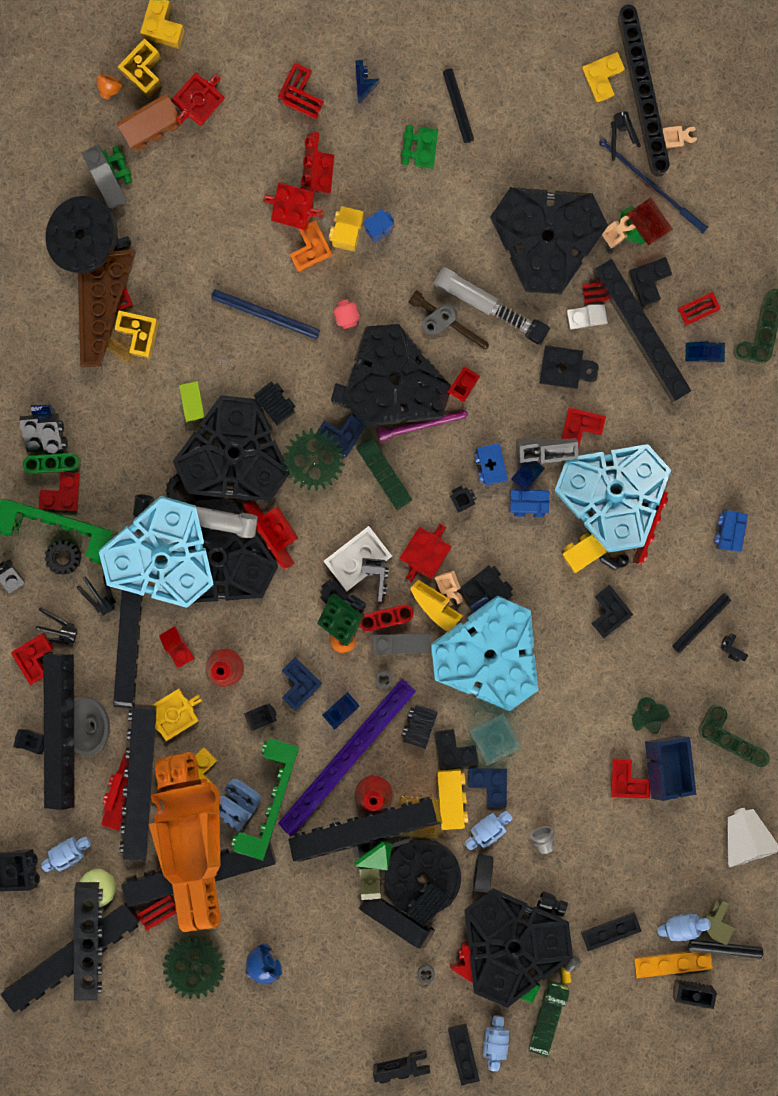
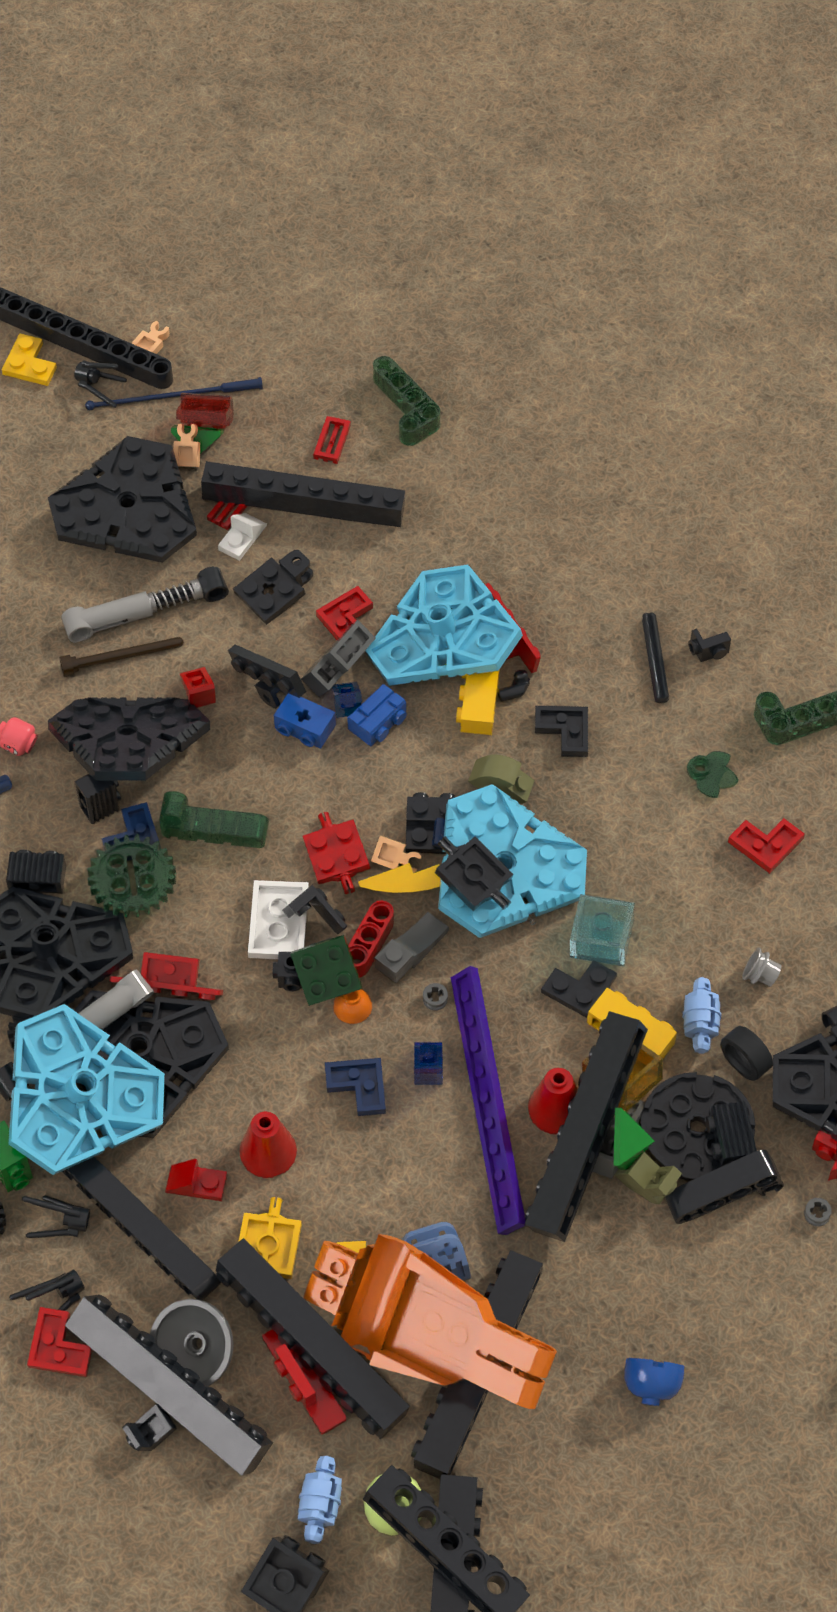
camera: 50 degrees left, 30 degrees down
(159, 920) = (489, 1430): red tile -> none
(207, 957) = (589, 1492): clear green gear -> none
(260, 716) = (358, 1149): black bracket -> none
(281, 754) = (496, 1252): green plate -> none
(386, 433) = (201, 753): magenta piece -> none
(420, 726) = (520, 996): black brick -> none
(438, 319) = (110, 656): dark grey plate -> none
(462, 498) = (313, 770): black brick -> none
(462, 651) = (474, 873): none -> black plate
(494, 780) = (654, 973): dark blue plate -> none
(497, 424) = (271, 674): none -> black plate
(545, 605) = (504, 774): none -> olive brick
(645, 278) = (257, 452): black plate -> none
(670, 768) = (786, 784): dark blue piece -> none
(705, 352) = (378, 463): clear blue slope -> none
(731, 530) = (582, 563): blue brick -> none

